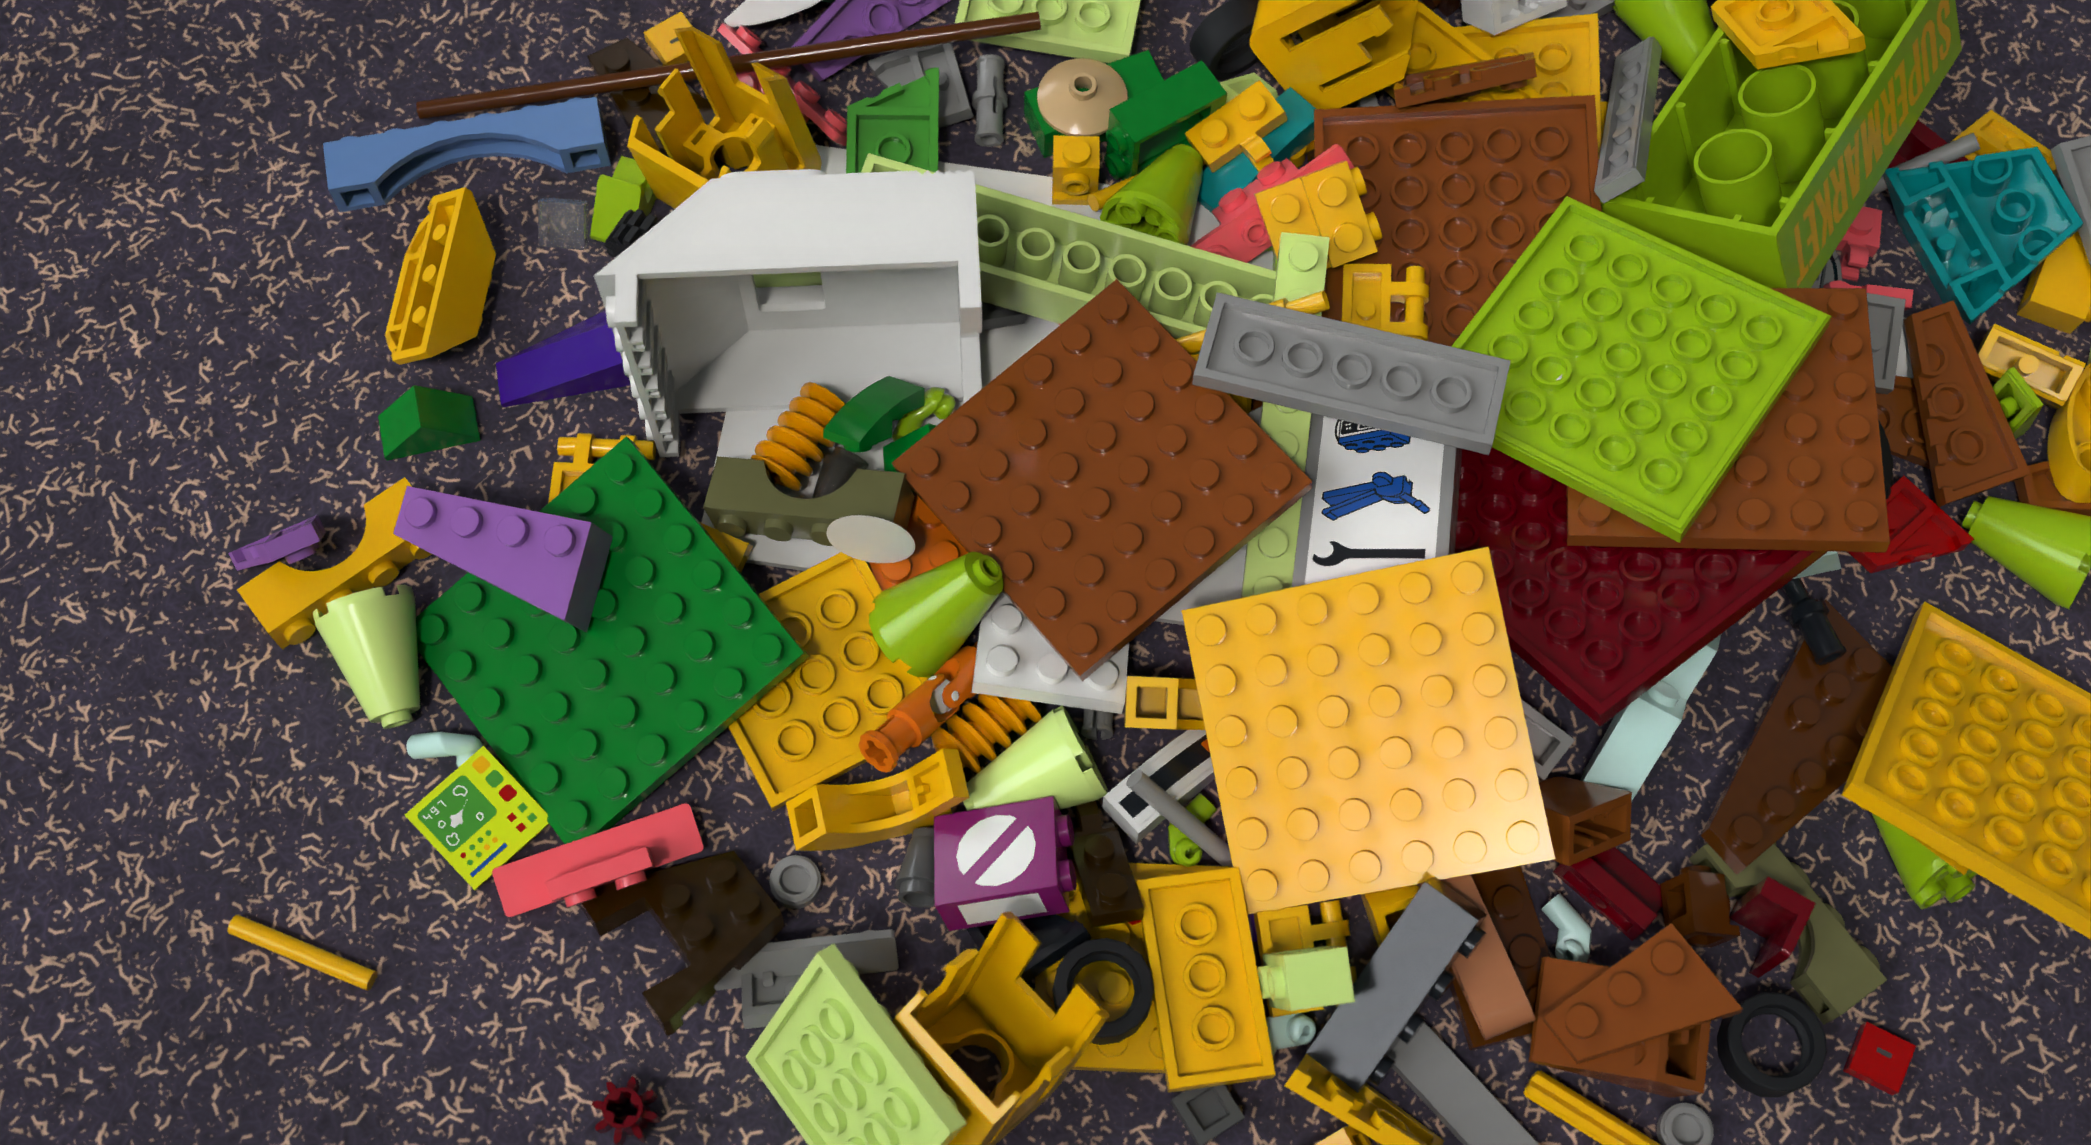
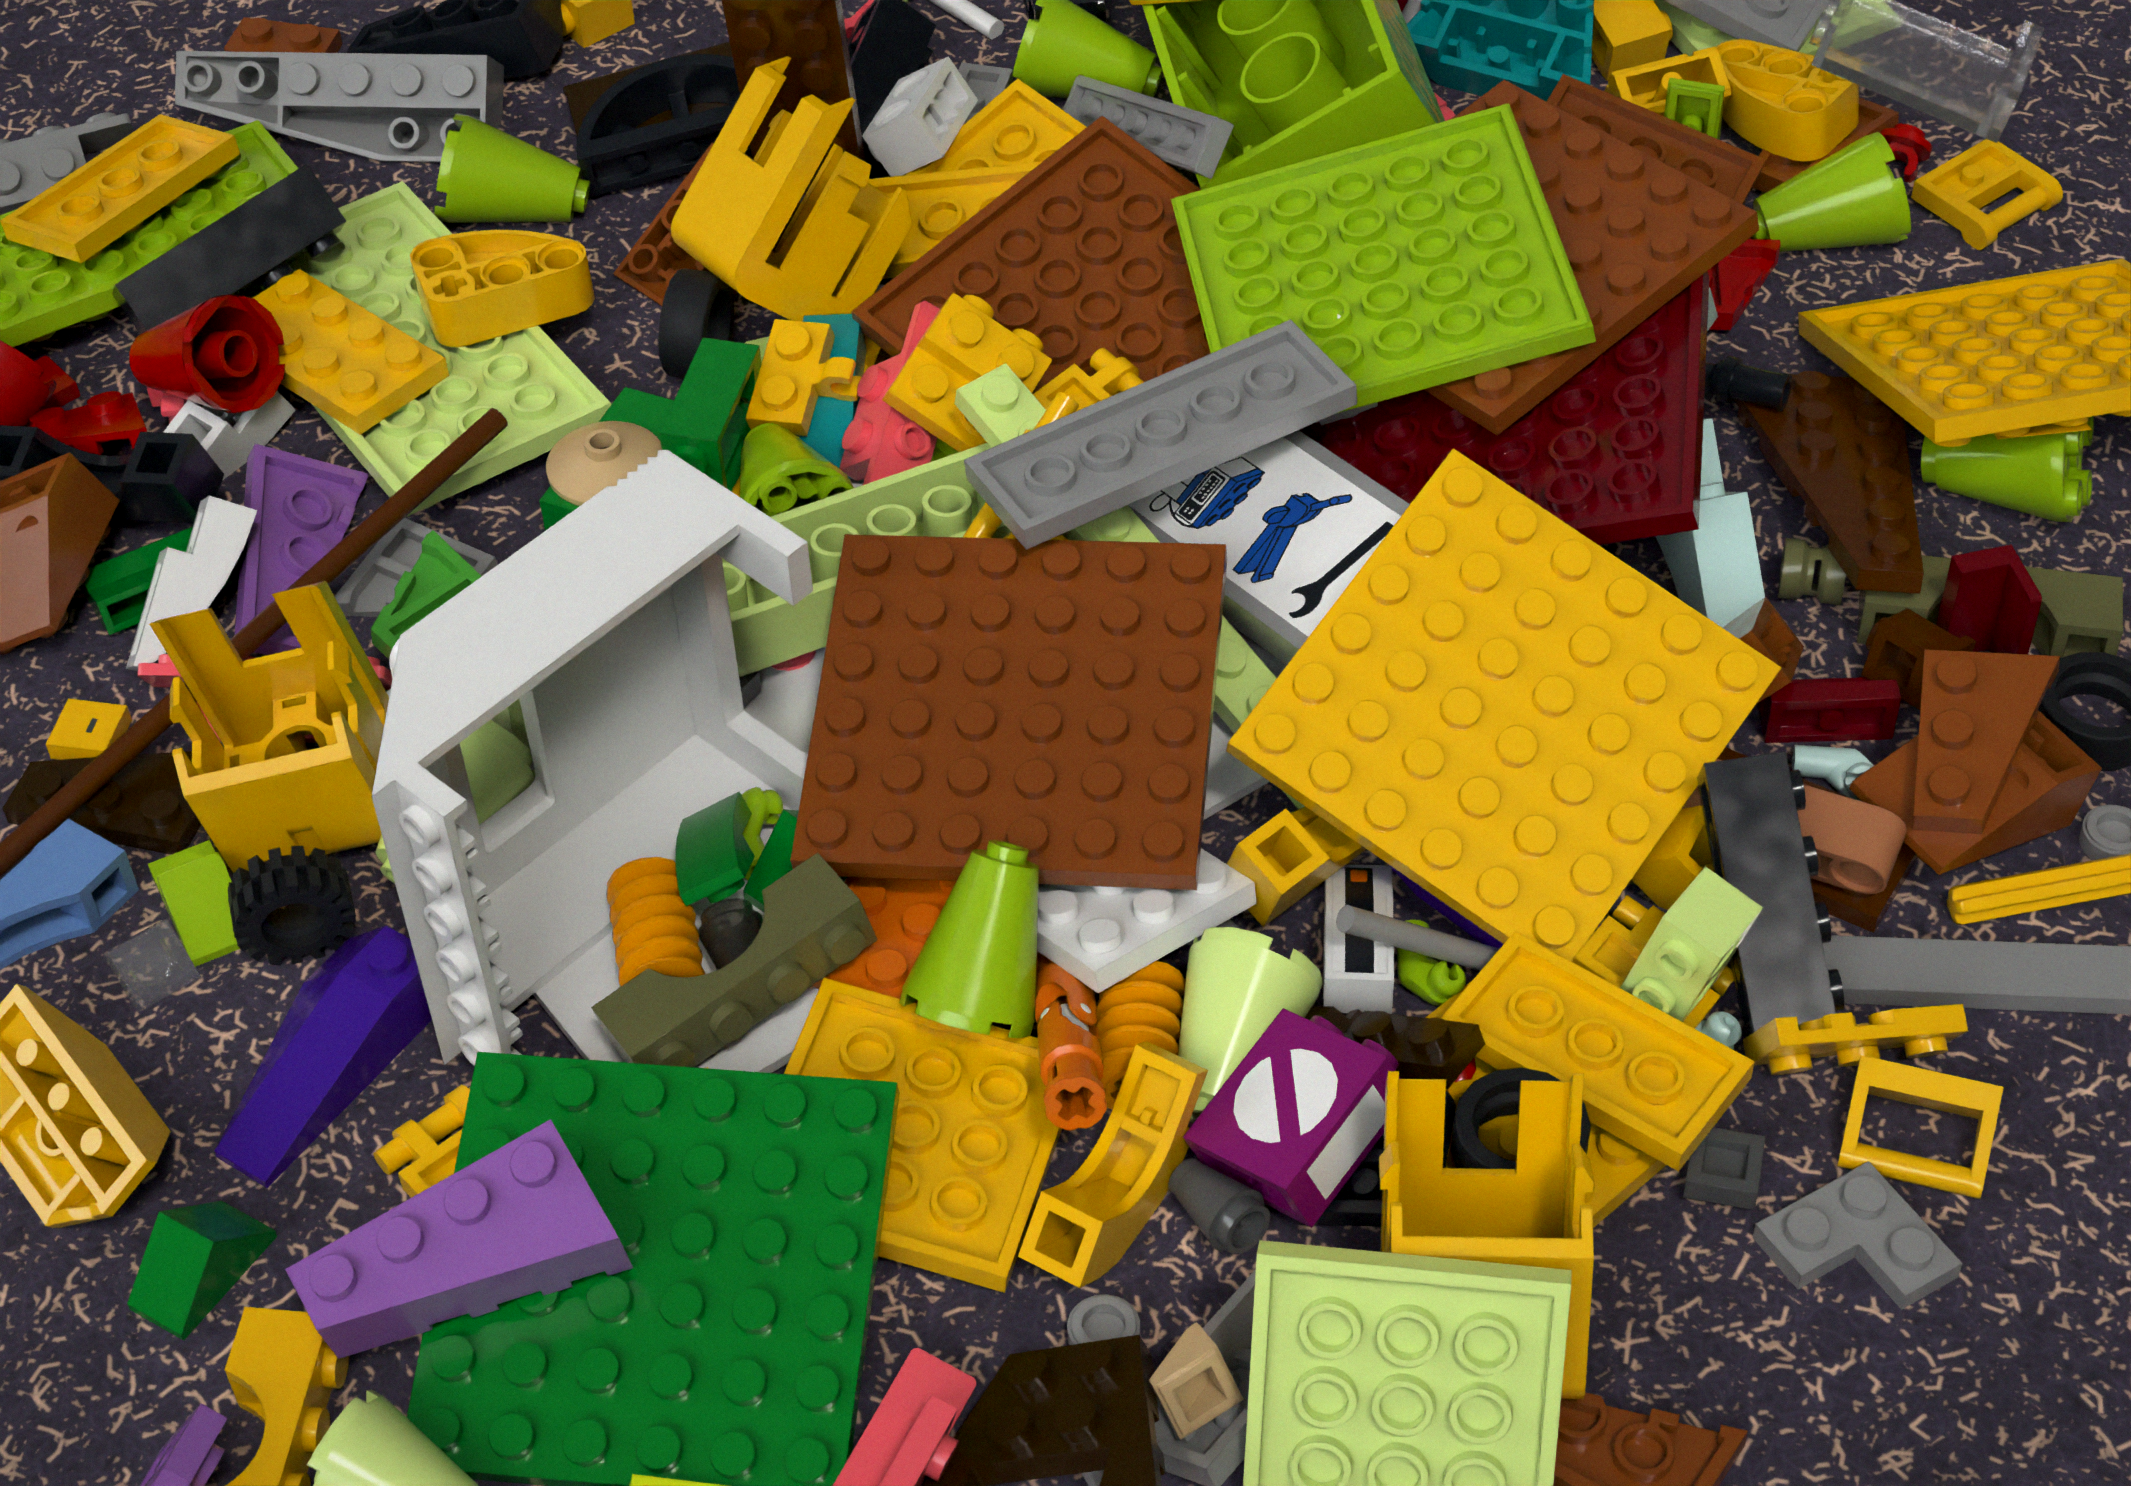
camera: 40 degrees left, 20 degrees down
(782, 961) = (1194, 1382): none -> tan slope
(870, 539) = (847, 937): white sticker -> none
(989, 100) = (486, 530): light grey pin -> none
(1465, 79) = (967, 191): dark orange wing -> none
(1698, 783) = (1798, 573): none -> olive wheel

